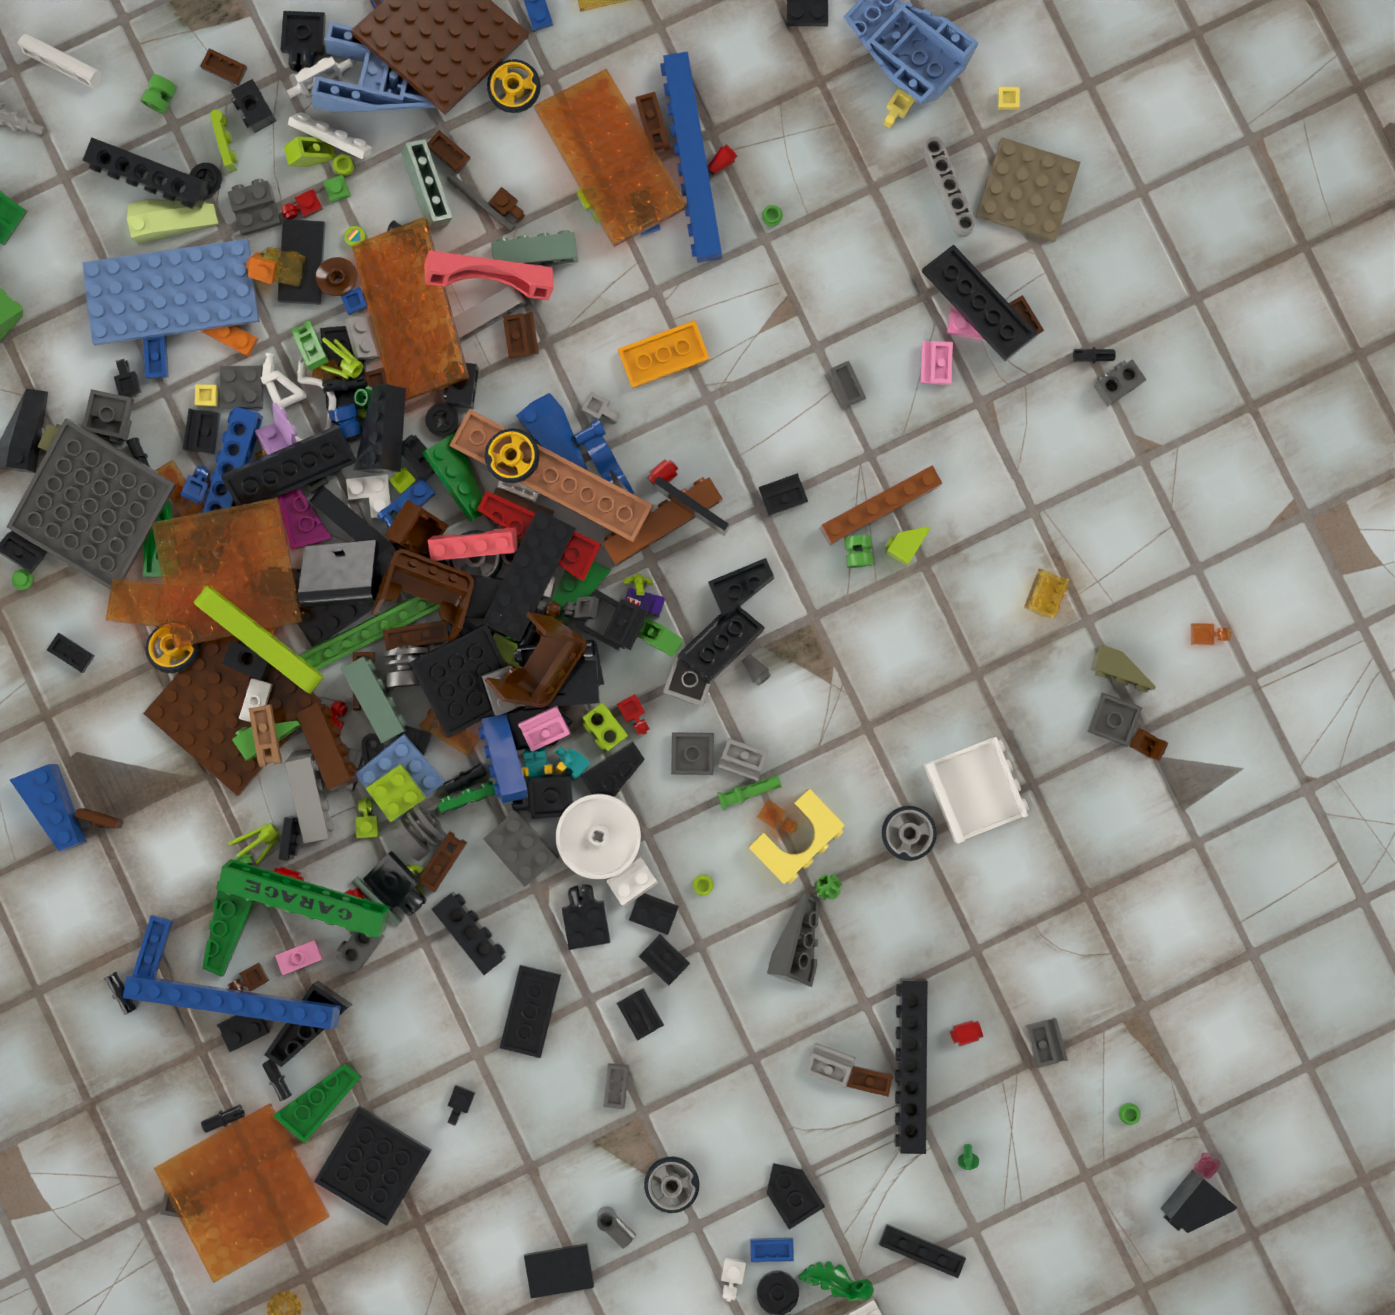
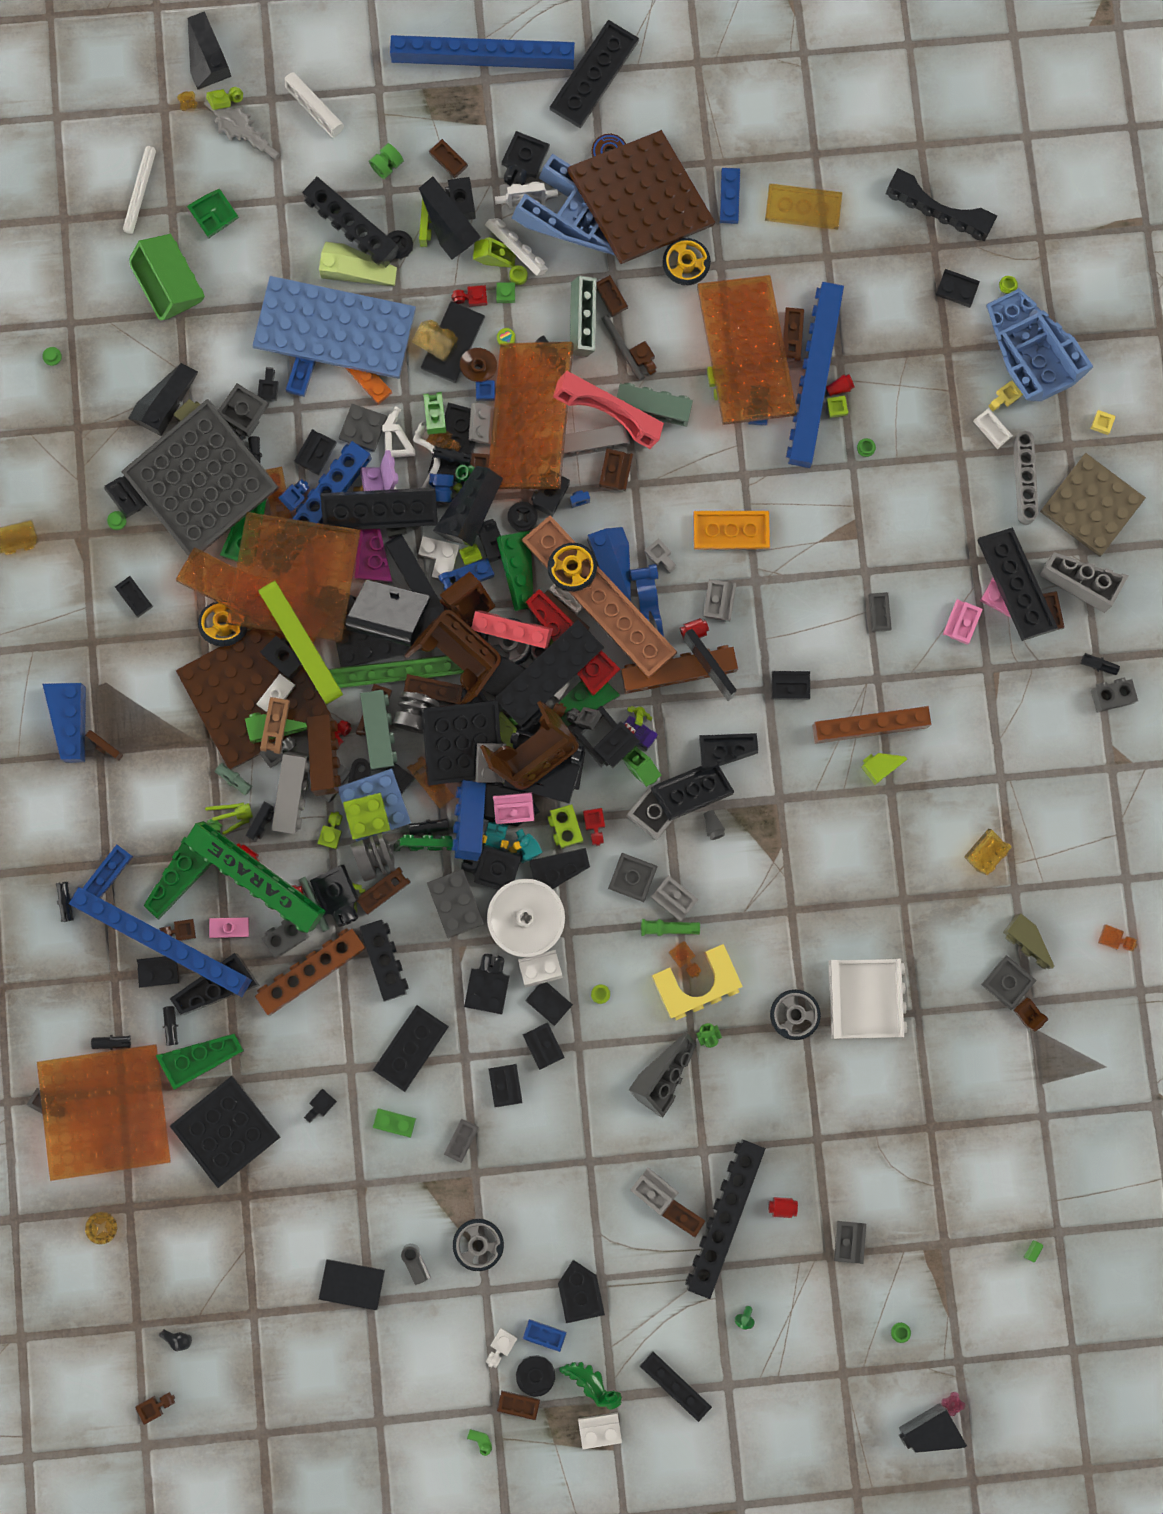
camera: 10 degrees right, 5 degrees down
(206, 395) = (330, 423): light yellow plate -> none
(245, 803) = (233, 779): none -> sand green pin
(250, 137) = (449, 223): none -> black wedge
(254, 206) = (430, 282): dark grey plate -> none
(261, 268) = (418, 335): orange bracket -> none
(277, 770) = (272, 758): none -> dark grey plate
(349, 364) = (462, 441): lime plant -> none
(369, 1019) = (265, 993): none -> dark orange brick
(494, 379) = (579, 498): none -> blue plate
(541, 1092) = (394, 1123): none -> bright green plate
(677, 432) = (719, 600): none -> light grey plate
(726, 183) = (837, 406): none -> lime plate
(860, 558) = (838, 763): bright green wheel -> none
(896, 146) = (993, 428): none -> white plate
(1049, 273) = (1084, 580): none -> light grey wedge
(1235, 983) = (1033, 1251): none -> bright green tile

